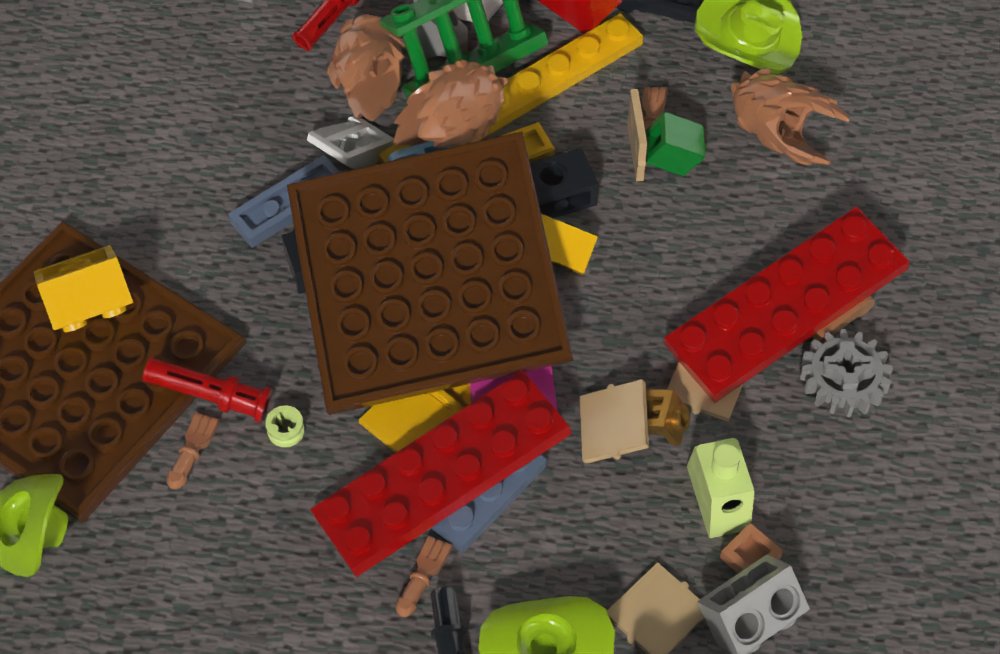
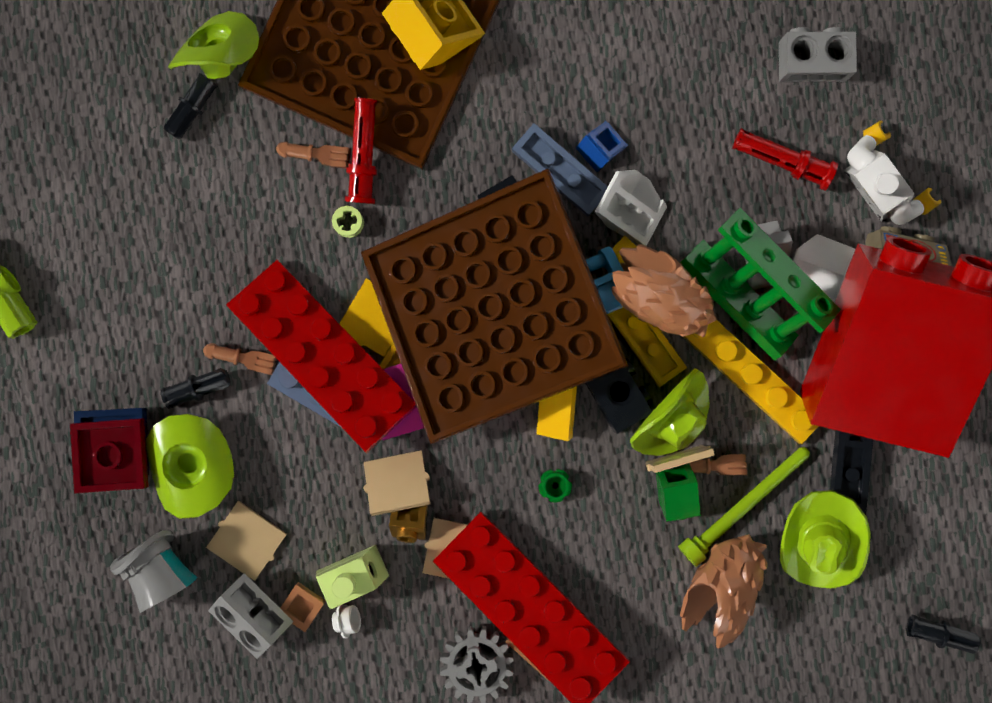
camera: 80 degrees right, 30 degrees up
(87, 578) = (190, 106): none -> black axle
(272, 163) = (601, 146): none -> blue slope
(367, 65) = (705, 201): nougat head -> none
(597, 131) = (676, 419): none -> lime hat
(647, 255) = (564, 485): none -> green plate
(741, 144) = (697, 547): none -> lime piece
(775, 507) = (346, 620): none -> white plate

